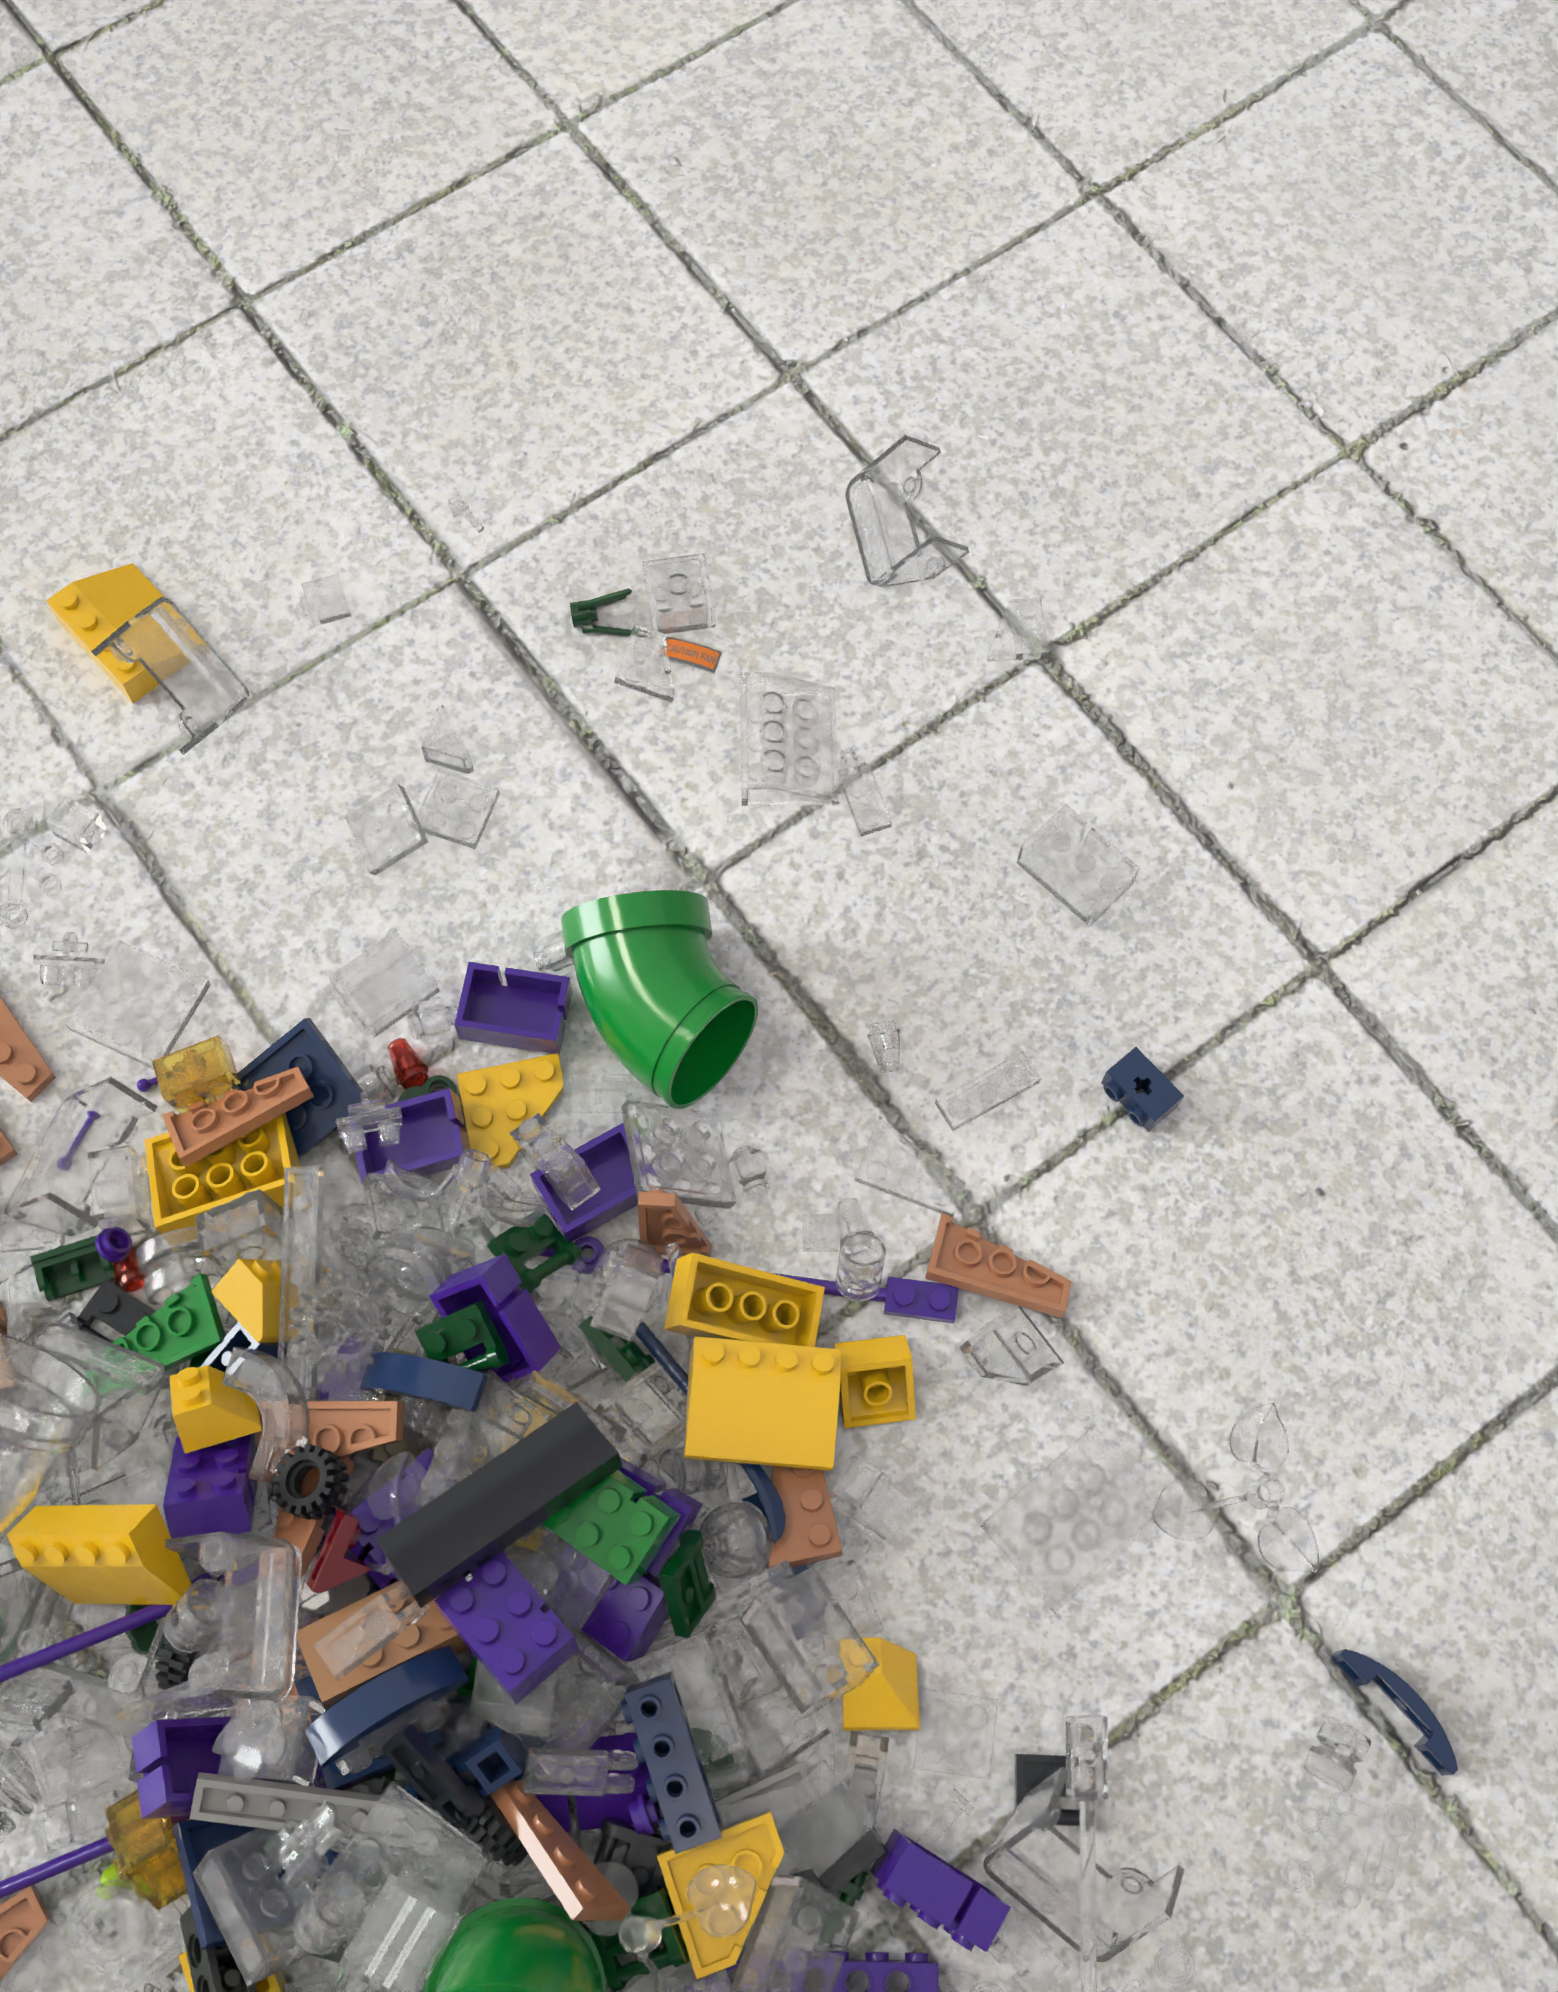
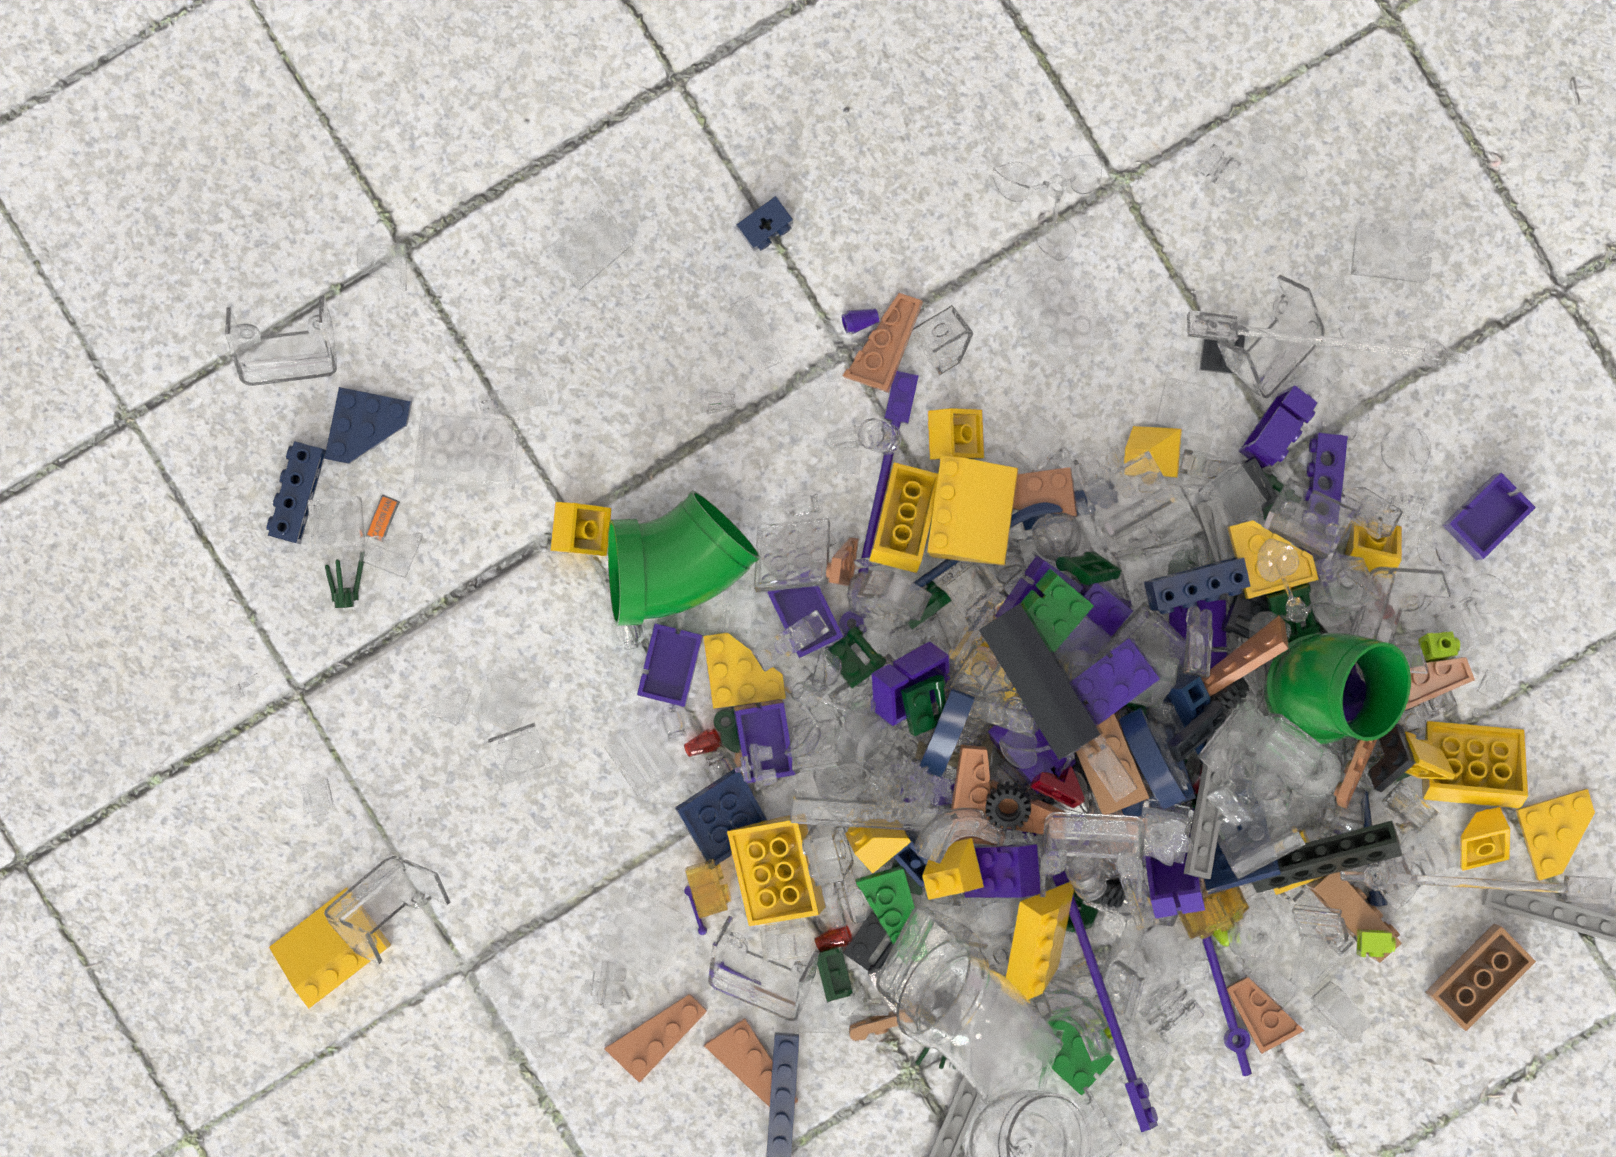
camera: 85 degrees left, 20 degrees up
(113, 1244) = (824, 944): dark purple plate -> none
(238, 1113) = (745, 870): nougat wing -> none
(644, 1815) = (1224, 604): dark purple plate -> none
(699, 872) = (580, 529): none -> yellow slope
(727, 551) = (297, 487): none -> dark blue brick
(810, 622) = (363, 422): none -> dark blue plate
(1025, 1229) = (857, 320): none -> dark purple cone
(1434, 1743) = (1215, 104): dark blue slope -> none

